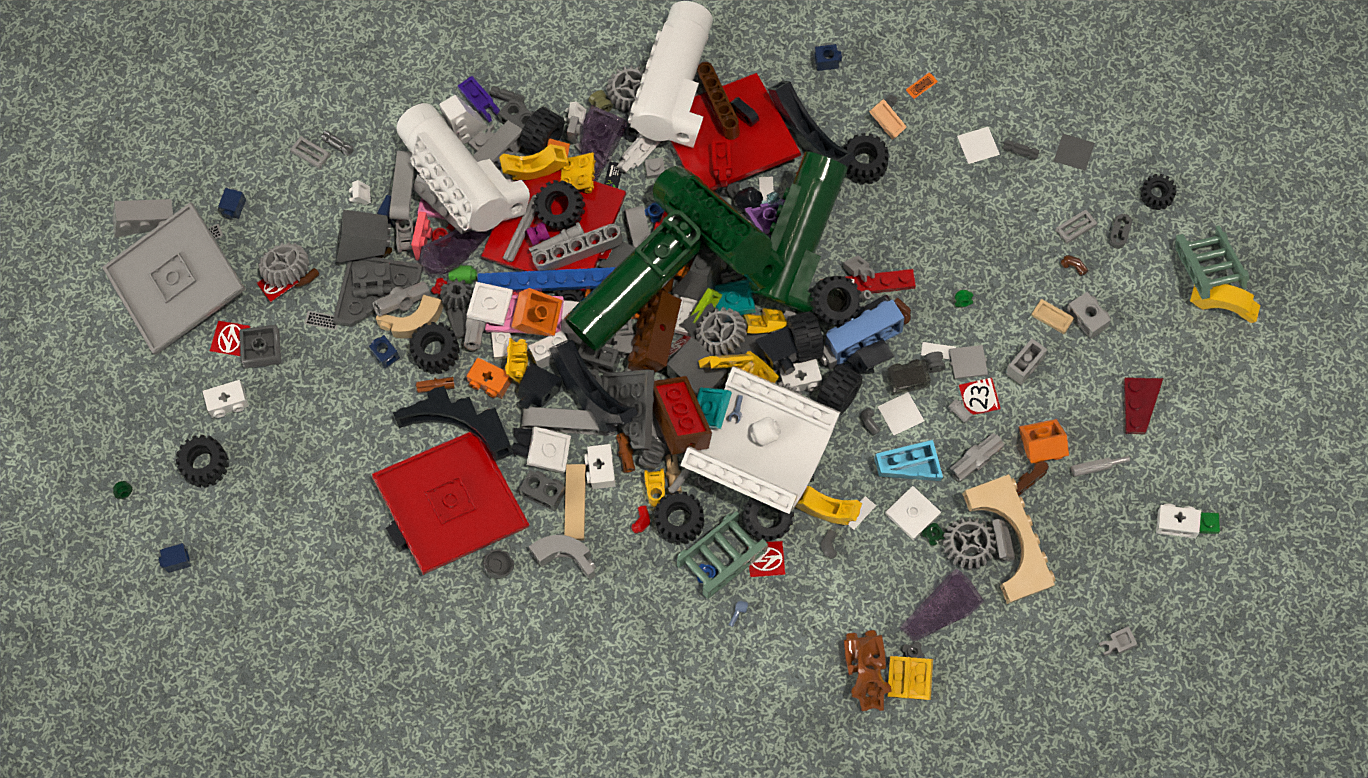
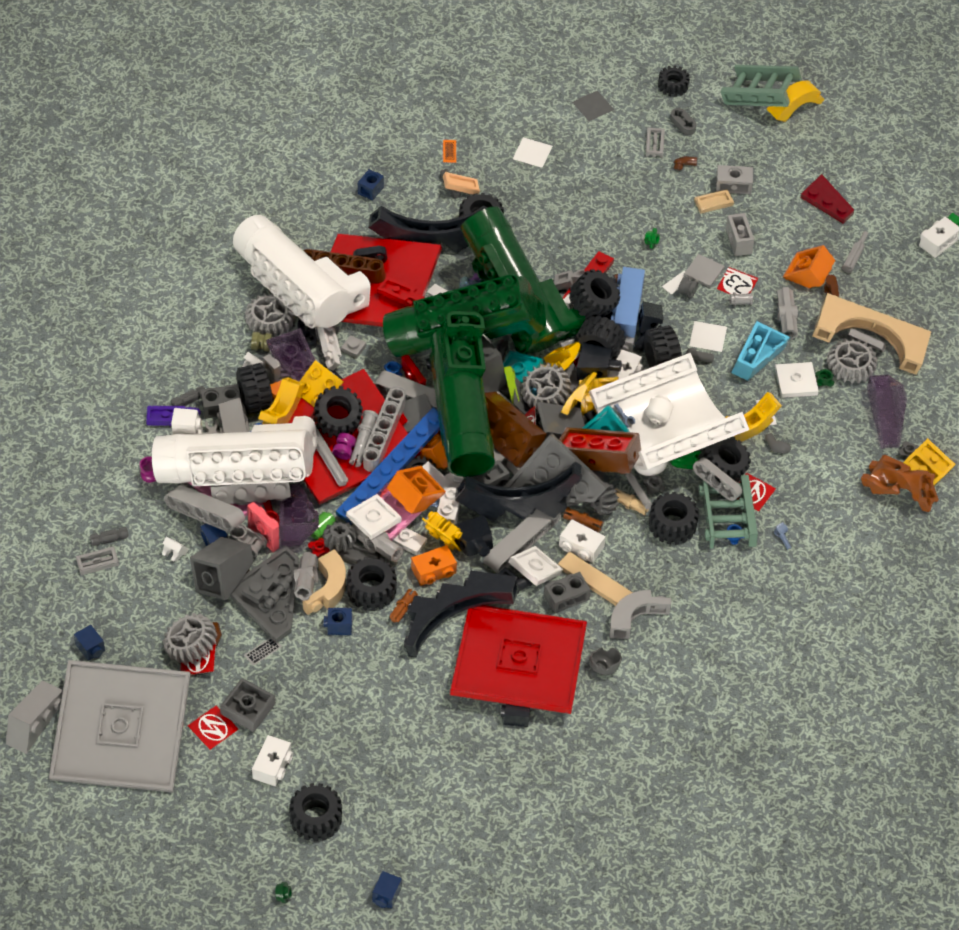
camera: 60 degrees left, 15 degrees down
(643, 521) = (651, 544): red arm -> none
(655, 484) = (631, 518): yellow piece -> none
(738, 523) = (727, 487): none -> light grey beam
(908, 377) = (685, 309): clear smoke brick -> none
(1021, 149) = (562, 130): dark grey axle -> none

